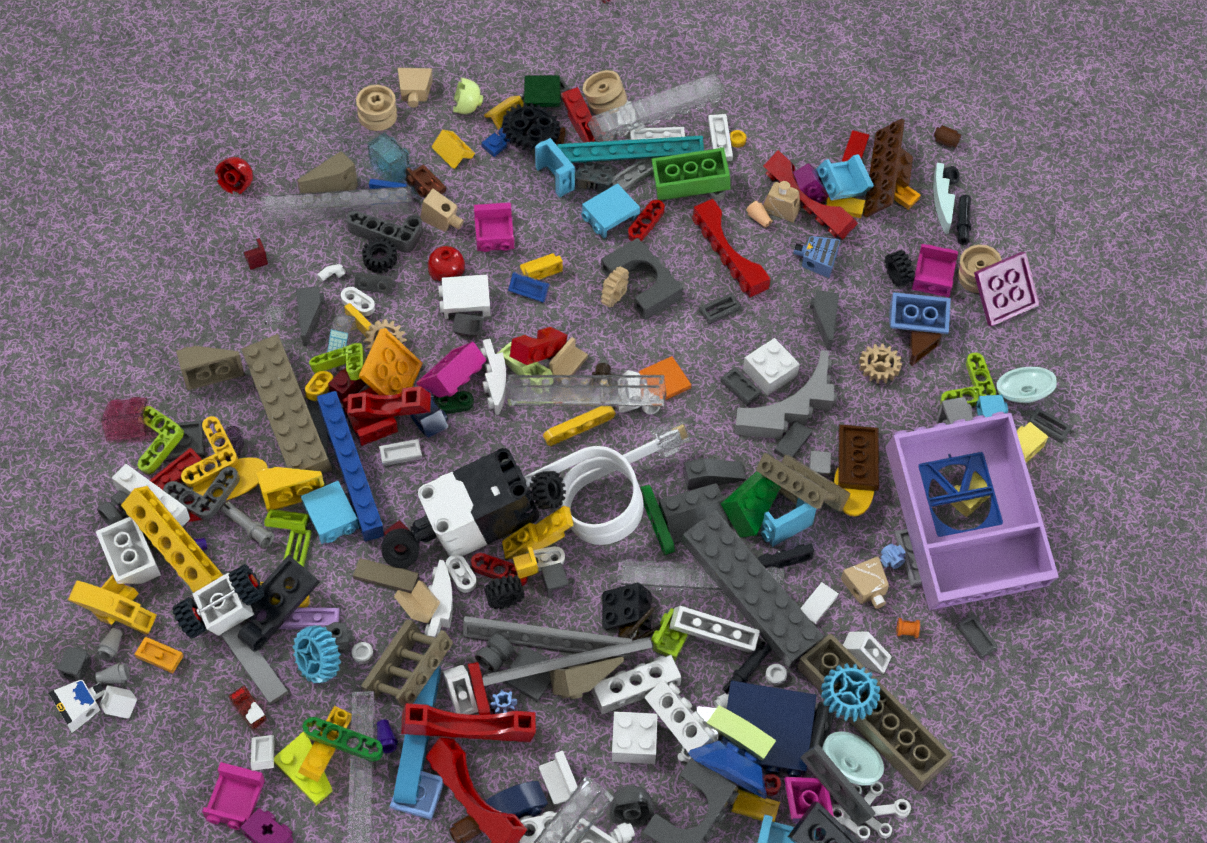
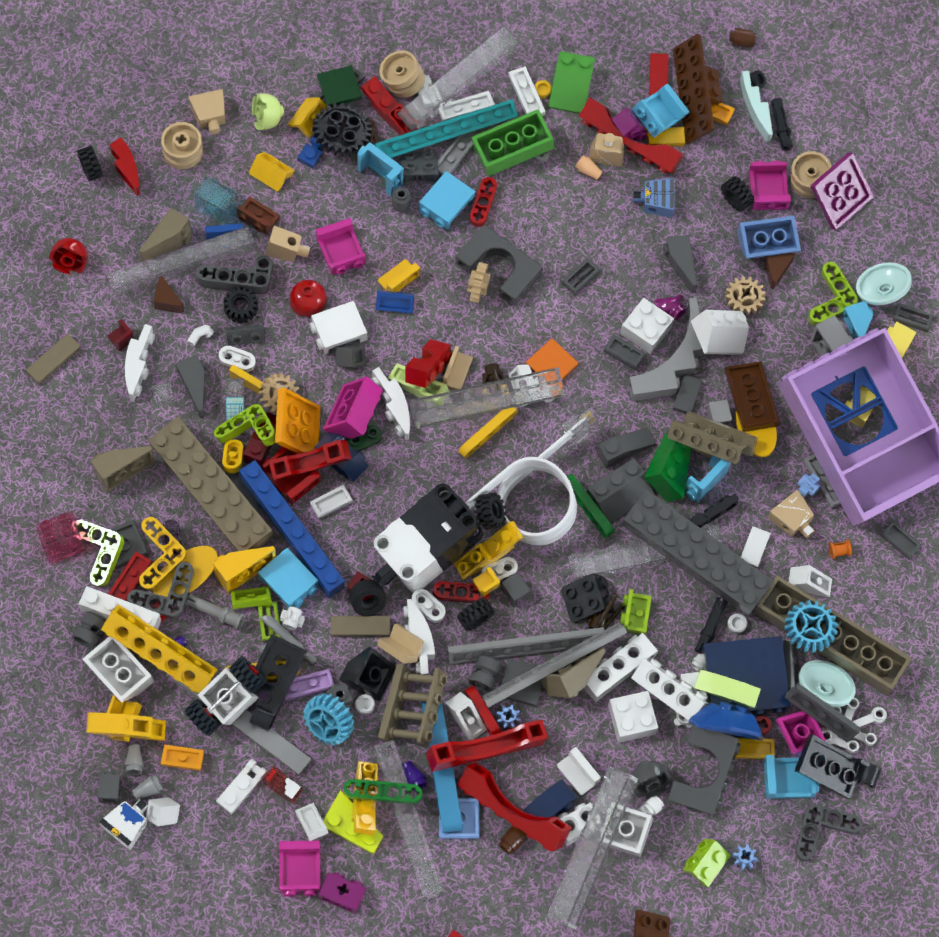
camera: 20 degrees left, 10 degrees up
(185, 261) = (53, 359): none -> dark tan tile
(206, 700) = (241, 787): none -> white plate
(258, 282) = (135, 362): none -> white slope
(285, 102) = (90, 163): none -> black tyre
(303, 558) = (284, 634): none -> light grey piece
(310, 233) = (166, 299): none -> reddish brown slope
(319, 112) = (125, 164): none -> red slope
(319, 549) = (292, 618): none -> white gear
(375, 622) = (368, 673): none -> black slope
(566, 199) = (401, 199): none -> dark grey brick
(714, 629) = (673, 598): white brick -> none
(750, 275) = (598, 235): red arch -> none
(766, 135) = (571, 82): none -> bright green slope
(802, 355) = (671, 306): none -> magenta animal
(844, 386) = (721, 331): none -> white slope

